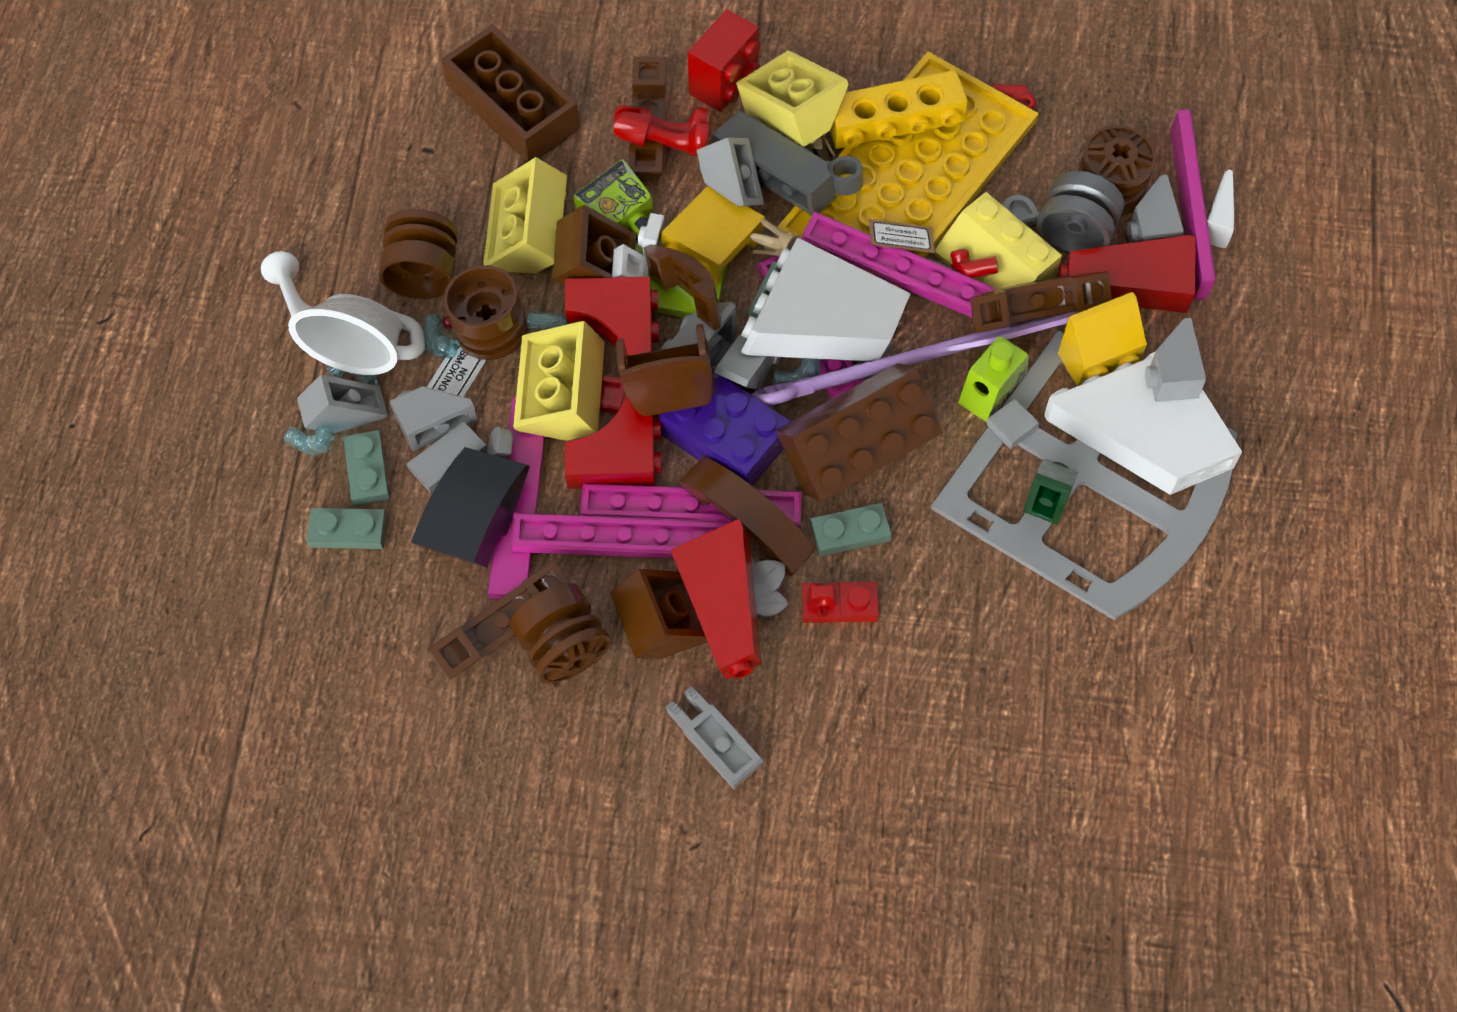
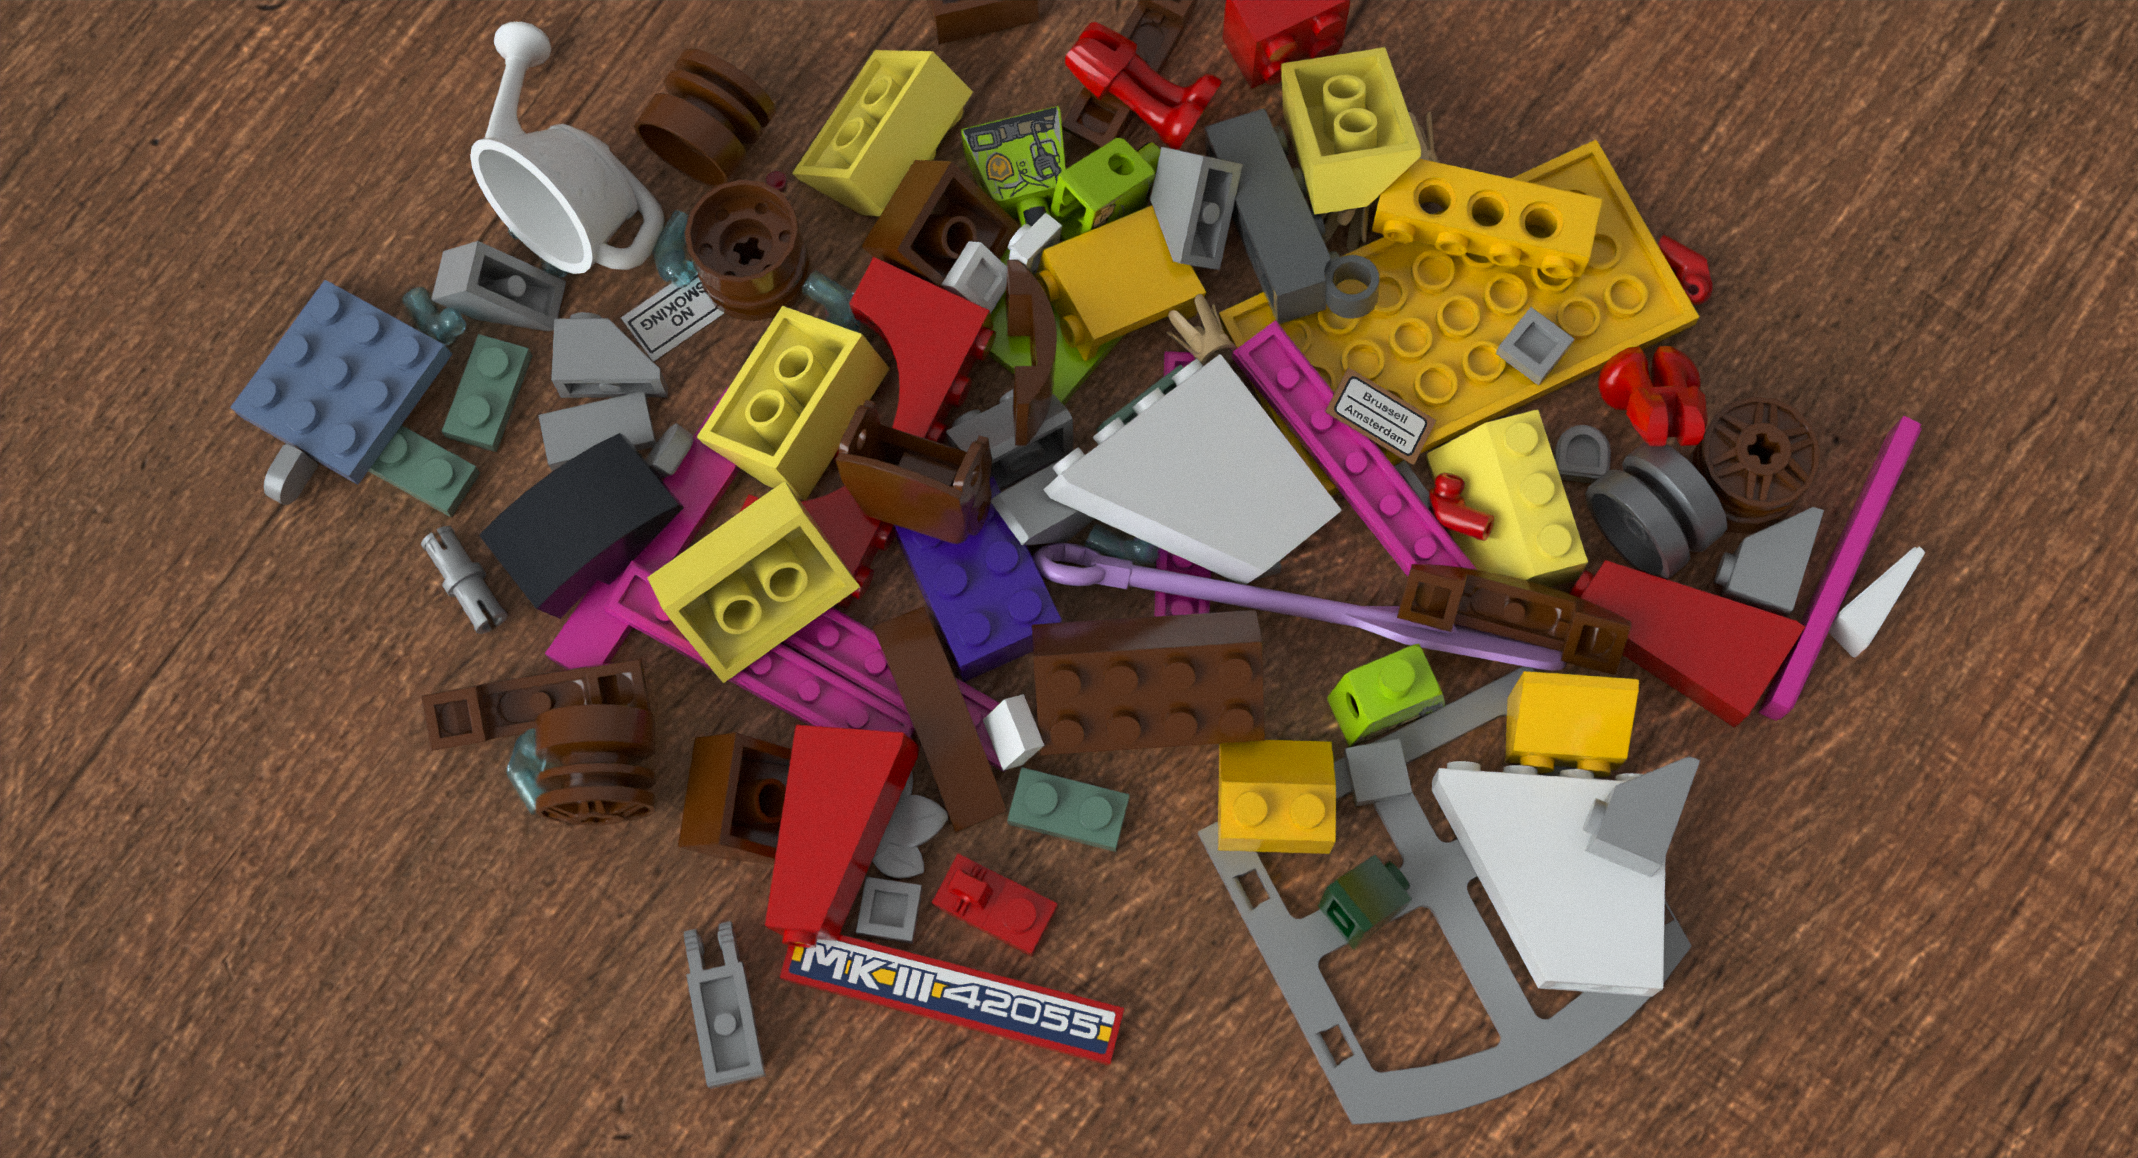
camera: 30 degrees right, 10 degrees up
(268, 567) = (288, 474): none -> light grey tile
(272, 500) = (341, 381): none -> sand blue plate
(413, 576) = (464, 579): none -> light grey pin
(513, 663) = (524, 767): none -> clear light blue arm
(598, 483) = (752, 582): none -> light yellow slope
(675, 180) = (1104, 187): none -> lime torso
(780, 635) = (889, 910): none -> light grey tile
(797, 496) = (1013, 732): none -> white tile
(847, 662) = (957, 996): none -> tile
(962, 164) = (1535, 346): none -> light grey tile
(967, 462) = (1277, 797): none -> yellow slope
(1046, 152) = (1661, 407): none -> red piece

